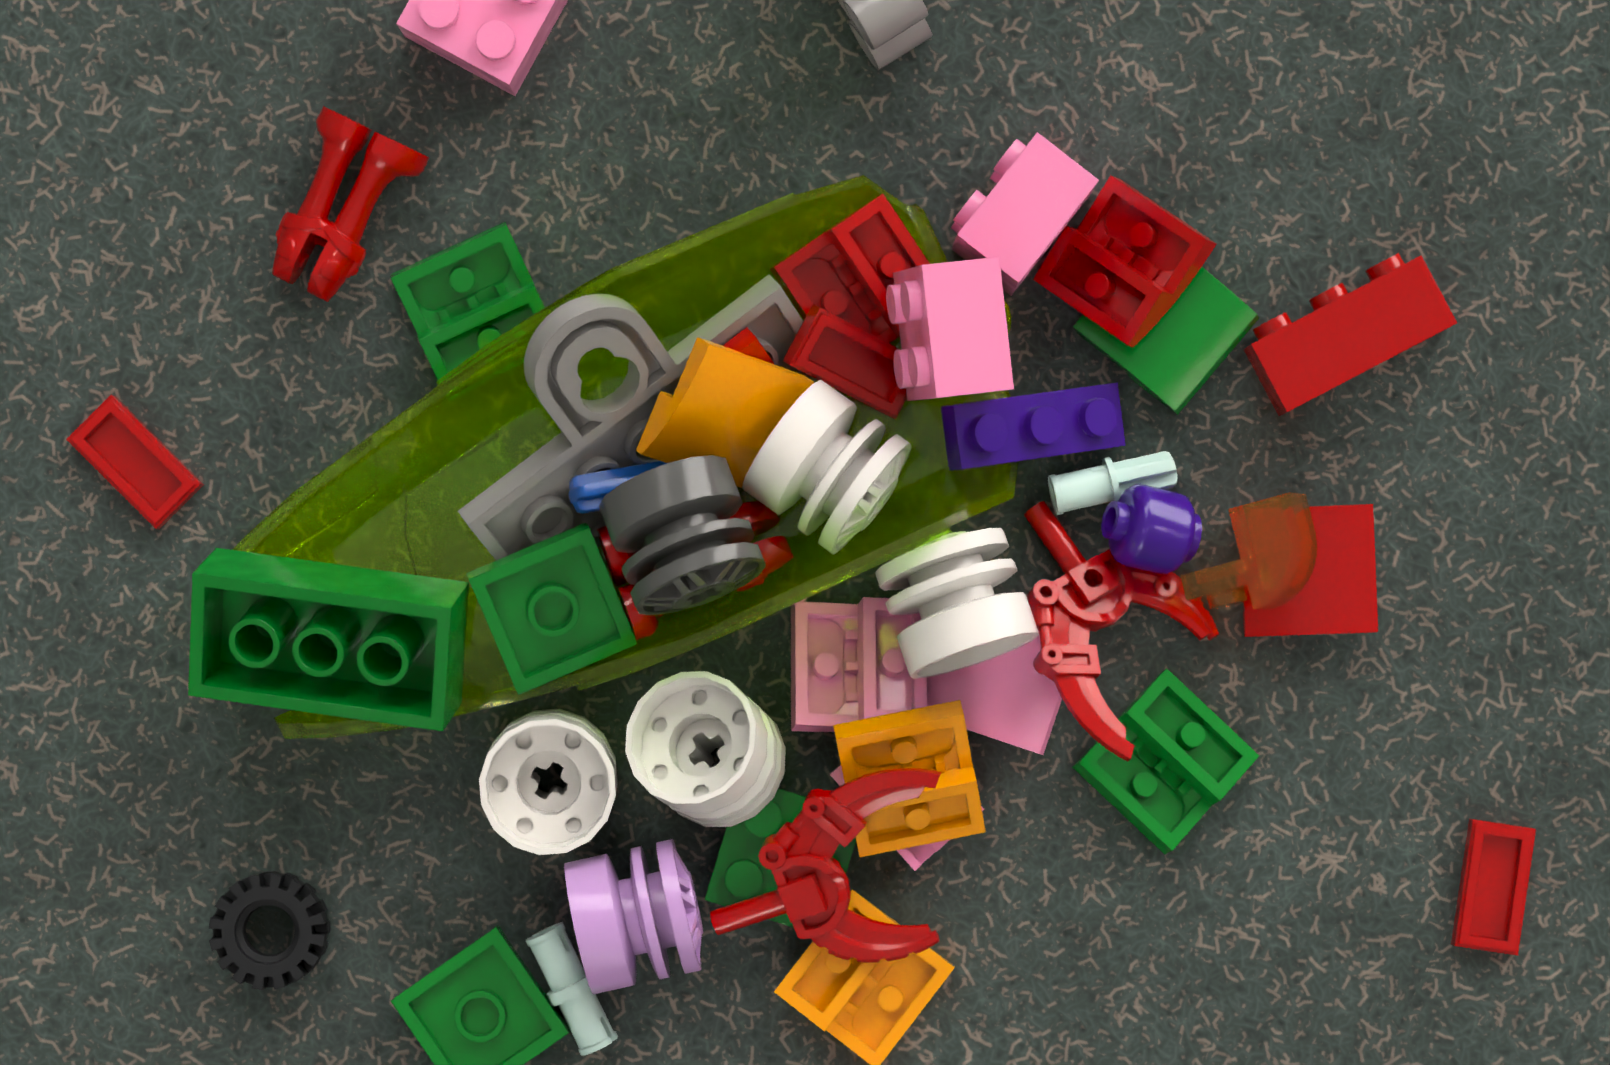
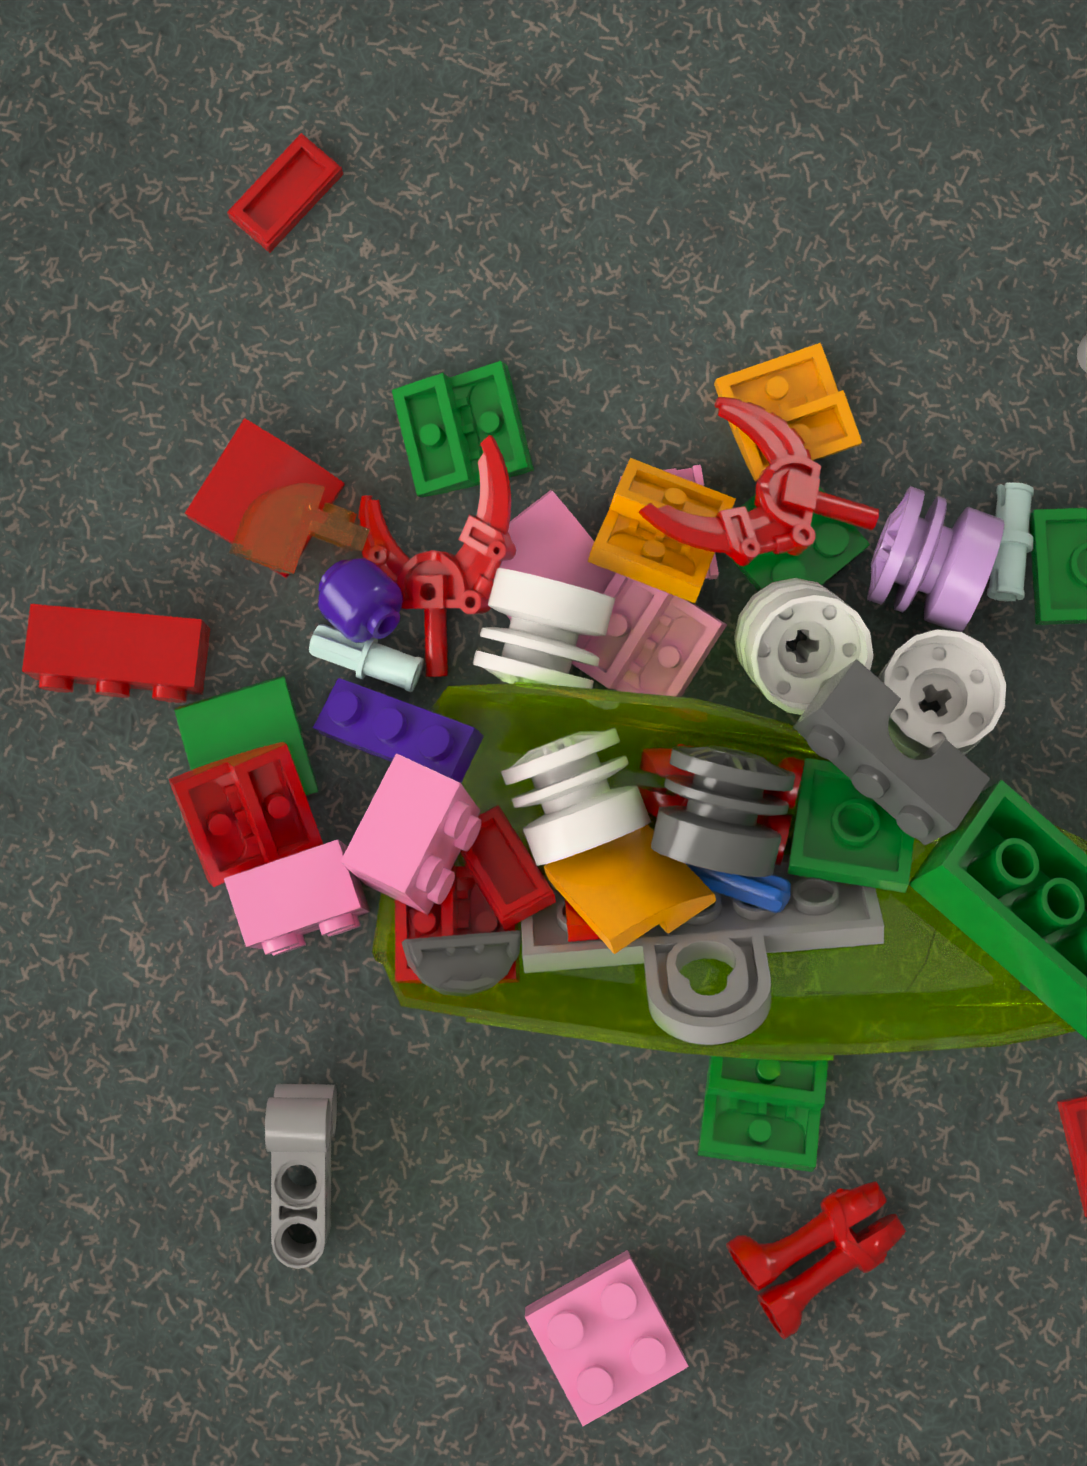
camera: 145 degrees left, 5 degrees down
(613, 685) = (851, 730): none -> dark grey arch
(830, 249) = (463, 962): none -> dark grey tile

